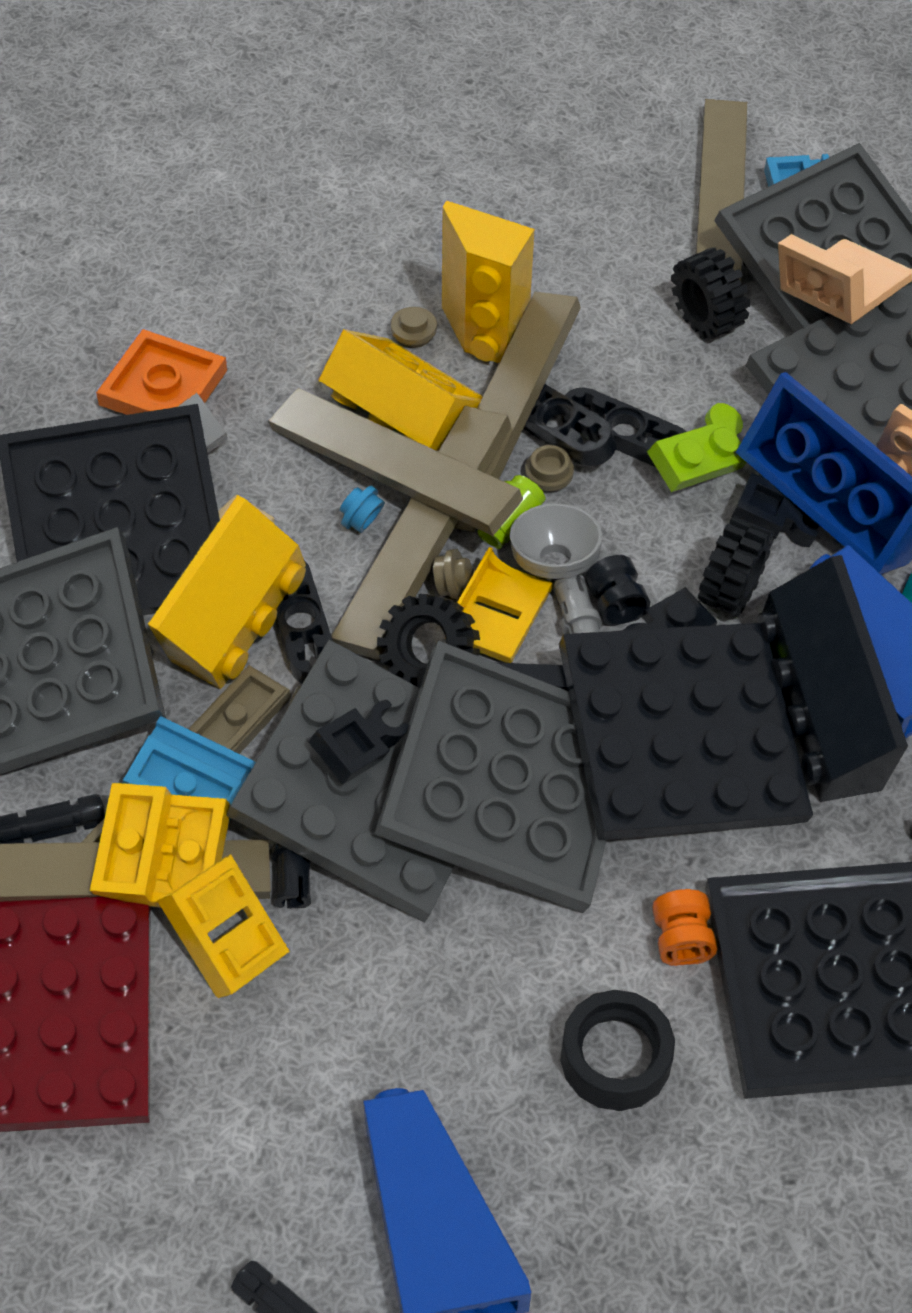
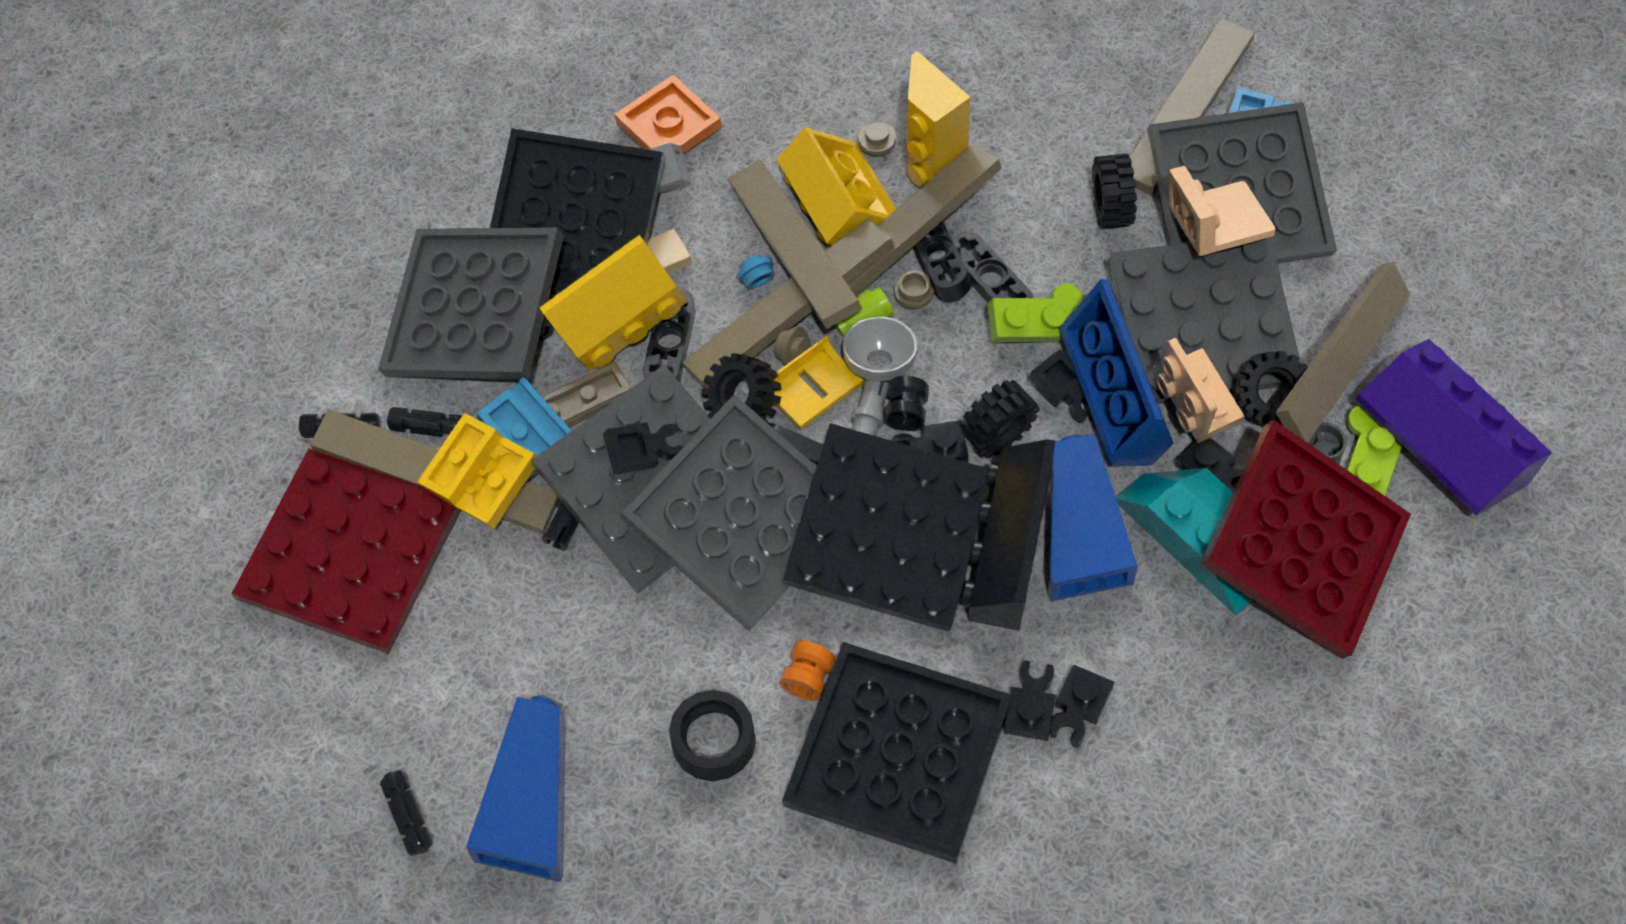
camera: 30 degrees right, 5 degrees up
(209, 902) = (489, 521): yellow piece -> none

